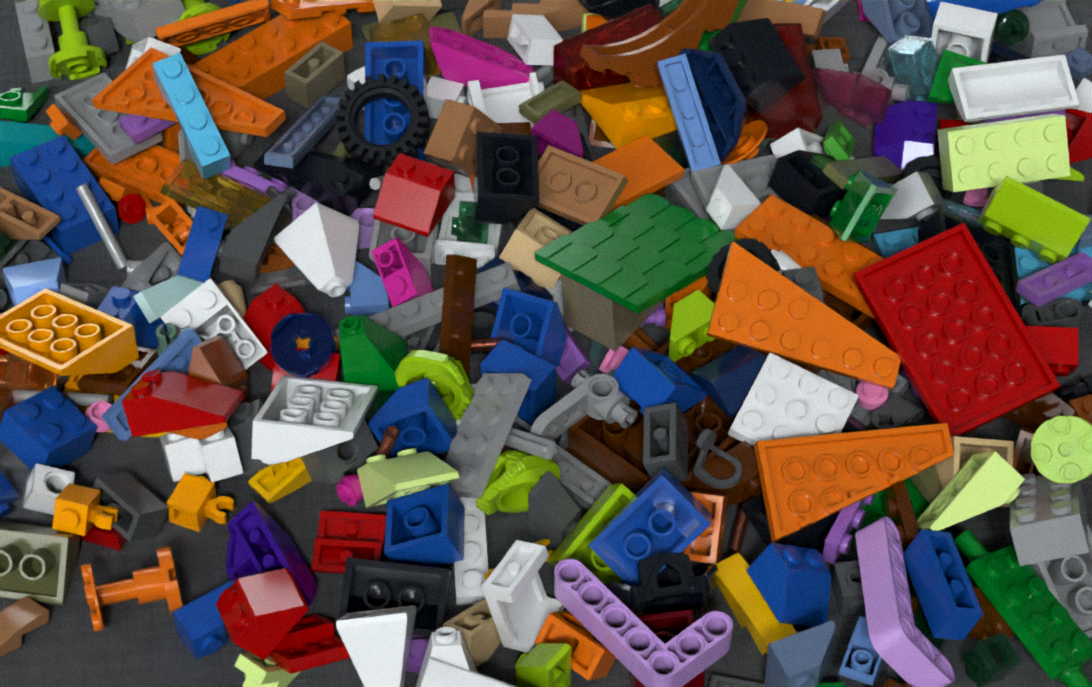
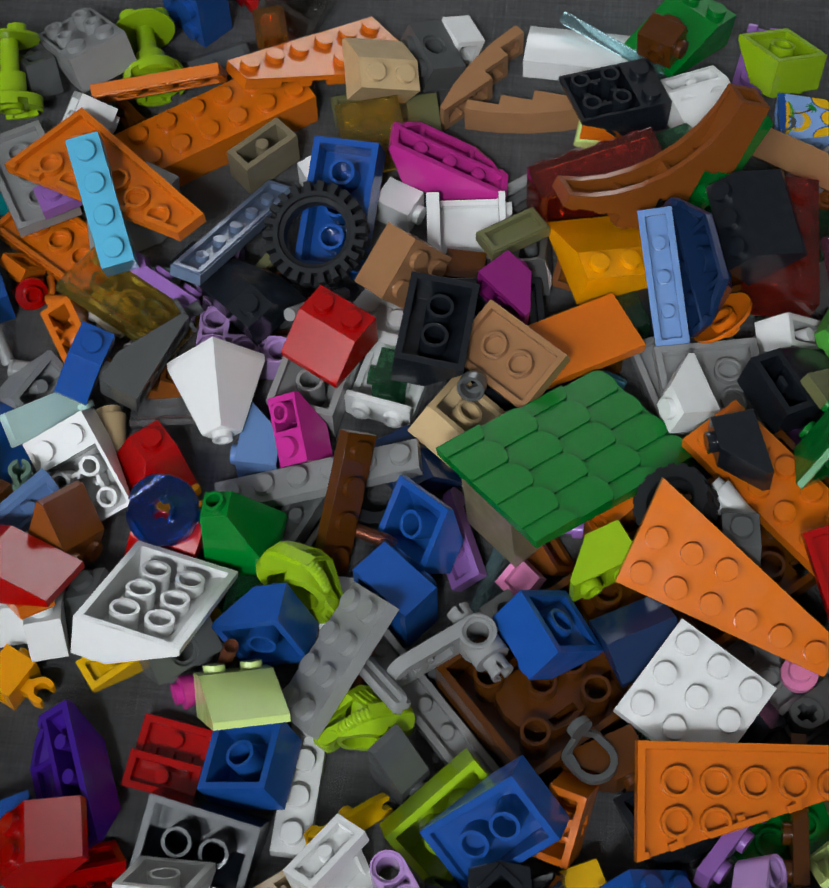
camera: 15 degrees right, 10 degrees up
(533, 38) = (516, 143): white brick -> none
(552, 217) = (476, 390): none -> dark grey hinge
(665, 441) = (534, 717): dark grey brick -> none
(739, 546) = (608, 828): copper piece -> none
(786, 223) = (740, 447): none -> black slope

